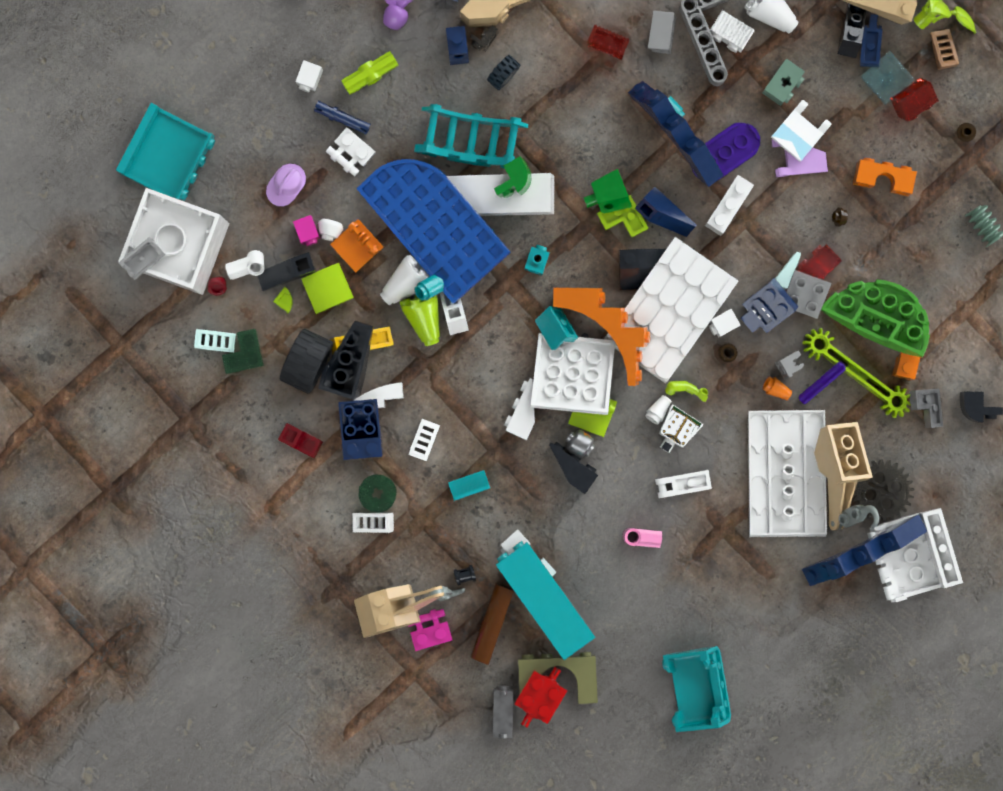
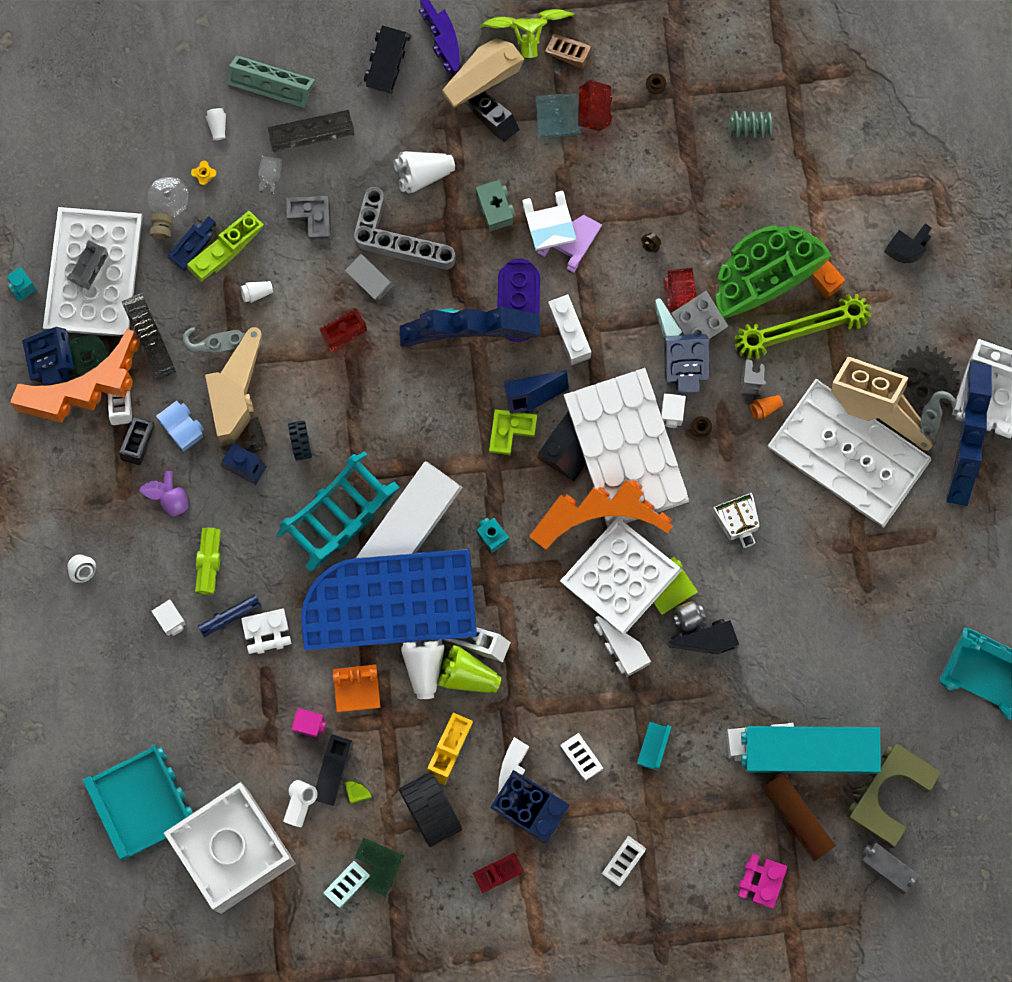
camera: 50 degrees left, 10 degrees down
(142, 258) = (227, 883): light grey hinge -> none
(217, 286) = (297, 844): dark red tile -> none
(286, 184) = (251, 713): lavender piece -> none
(327, 288) = (376, 743): lime slope -> none
(329, 229) = (323, 701): white cone -> none
(348, 365) = (462, 774): black wedge -> none
(387, 498) = (592, 826): clear green plate -> none
(395, 607) = (720, 896): tan slope -> none
(429, 287) = (447, 645): teal brick -> none
(464, 575) = (735, 810): black bush -> none
(519, 180) = (408, 490): green brick -> none
(540, 697) = (899, 820): red plate -> none
(555, 327) = (566, 561): teal panel -> none
(609, 193) = (480, 426): green torso -> none
(645, 538) = (817, 622): bright pink piece -> none
(658, 410) = (709, 525): white cone -> none
(676, 386) = (703, 486): lime arm -> none
(684, 483) = (793, 550): white plate -> none
(731, 32) = (415, 217): white brick -> none
(822, 382) = (789, 362): dark purple axle -> none
(871, 43) = (520, 108): dark blue hinge -> none
(901, 178) = (657, 167): orange arch -> none
(930, 402) = (874, 283): flat silver plate -> none

